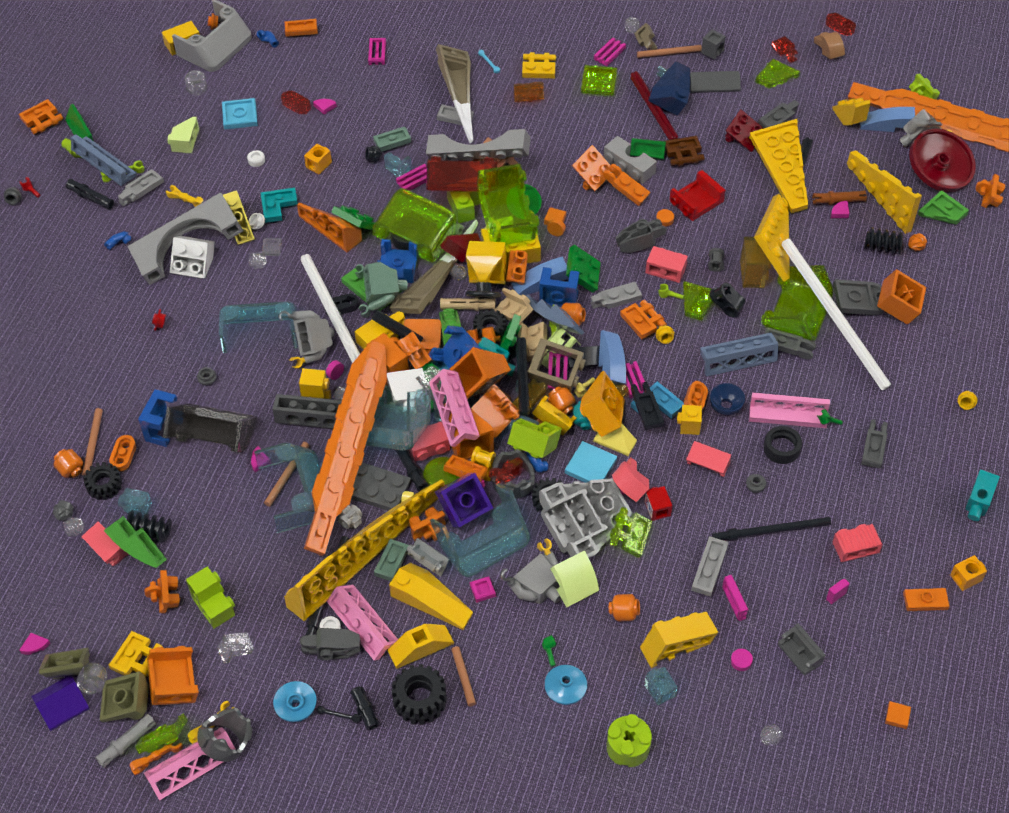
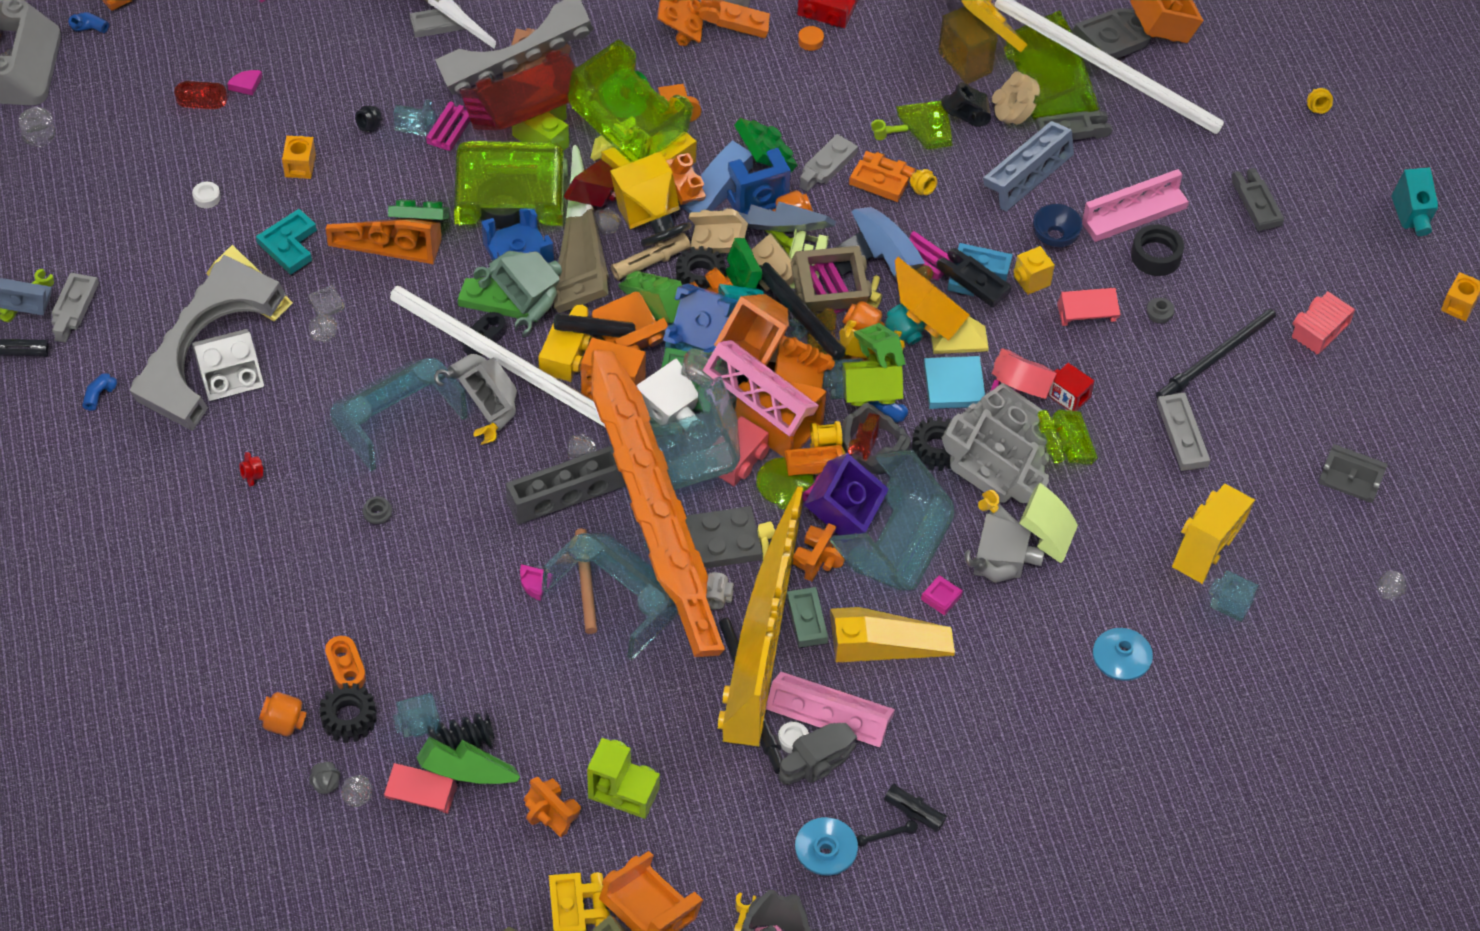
camera: 35 degrees left, 0 degrees up
(92, 440) = (288, 671): nougat bar -> none
(154, 417) = (367, 591): blue panel -> none
(176, 193) = (130, 291): yellow piece -> none
(184, 136) = (79, 208): yellowish green slope -> none
(209, 424) = (447, 566): clear smoke windscreen -> none
(234, 645) = (694, 824): clear bracket -> none
(239, 113) = (131, 144): medium azure tile -> none
(256, 221) = (283, 274): white plate -> none
(314, 384) = (544, 447): yellow brick -> none
(335, 370) = (545, 419): dark pink tile -> none
(392, 139) = (379, 87): sand green plate -> none
(413, 470) = (744, 494): black pin -> none
(414, 350) = (642, 337): orange hips -> none
(419, 643) = (921, 699): yellow slope -> none
(419, 678) = (976, 734): black tyre -> none
(428, 556) = (850, 589): light grey hinge -> none
(463, 676) = (1000, 708): nougat bar -> none
(547, 415) = (881, 341): none -> bright green hinge
(547, 644) = (1069, 619): green hand -> none
(624, 607) = (1126, 528): orange head -> none
(629, 741) = (1248, 676): lime brick -> none
(640, 235) = (802, 72): dark grey hinge -> none
(666, 264) = (860, 95): coral brick -> none
(696, 394) = (1016, 237): orange plate -> none
(716, 259) = (914, 62): dark grey bush -> none
(735, 598) = (1239, 453): dark pink tile -> none
(741, 659) = (1295, 520): dark pink tile -> none
(759, 308) = (1017, 87): none -> tan plate
(825, 418) = (1184, 194): green hand -> none
(837, 591) = (1342, 387): dark pink tile -> none
(926, 599) = (1438, 350): orange plate -> none

